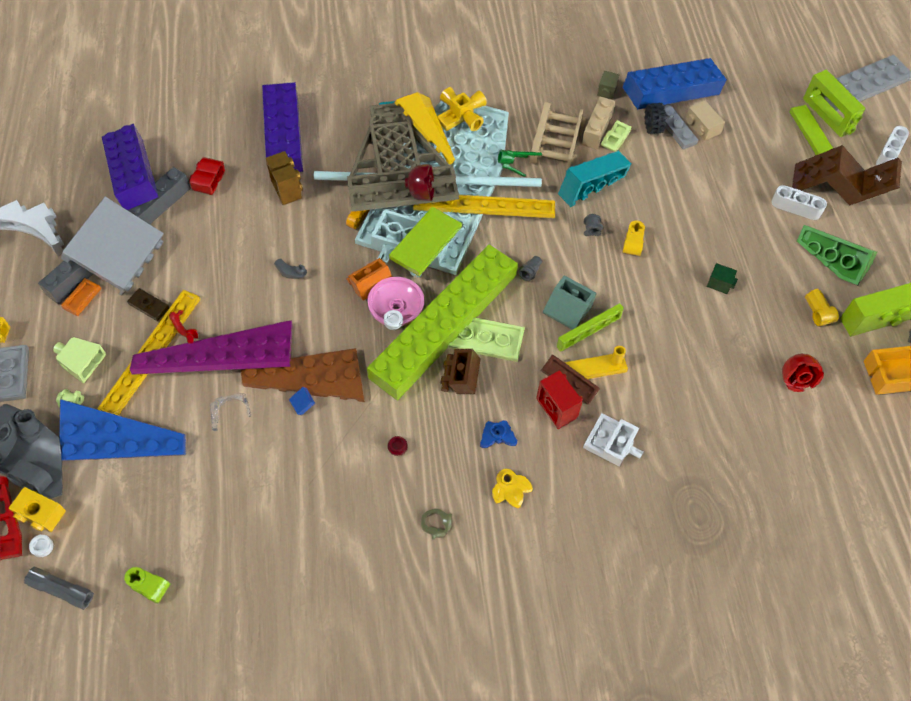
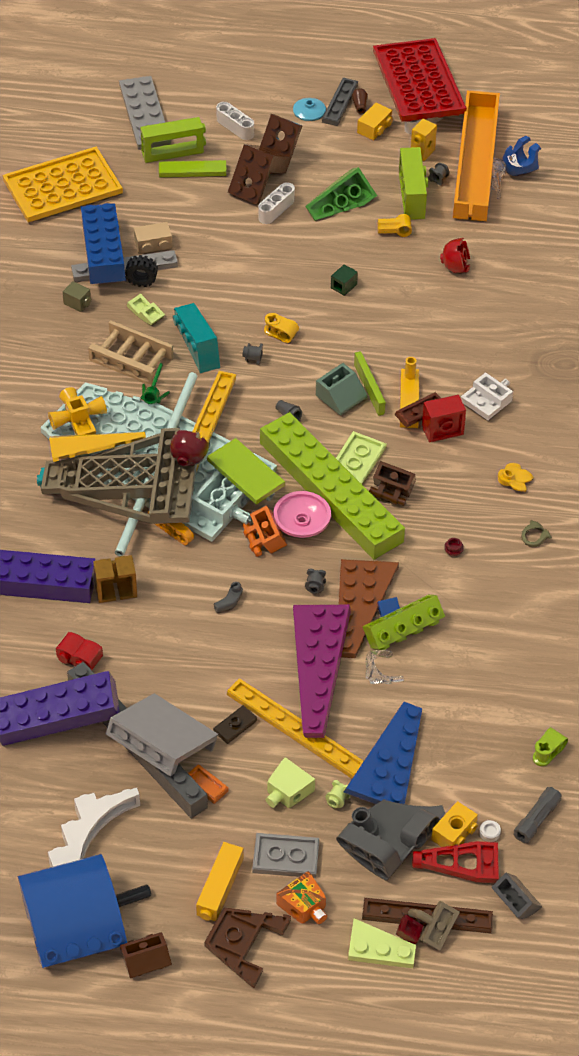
camera: 75 degrees left, 10 degrees down
(190, 334) = (294, 683): red piece -> none
(282, 415) = (404, 621): none -> lime brick
(321, 331) = (315, 581): none -> dark grey brick
(393, 319) = (326, 516): white tile -> none
(490, 434) = (459, 476): blue animal -> none
(598, 122) = (126, 313): tan brick -> none
(741, 47) = (62, 184): none -> yellow plate

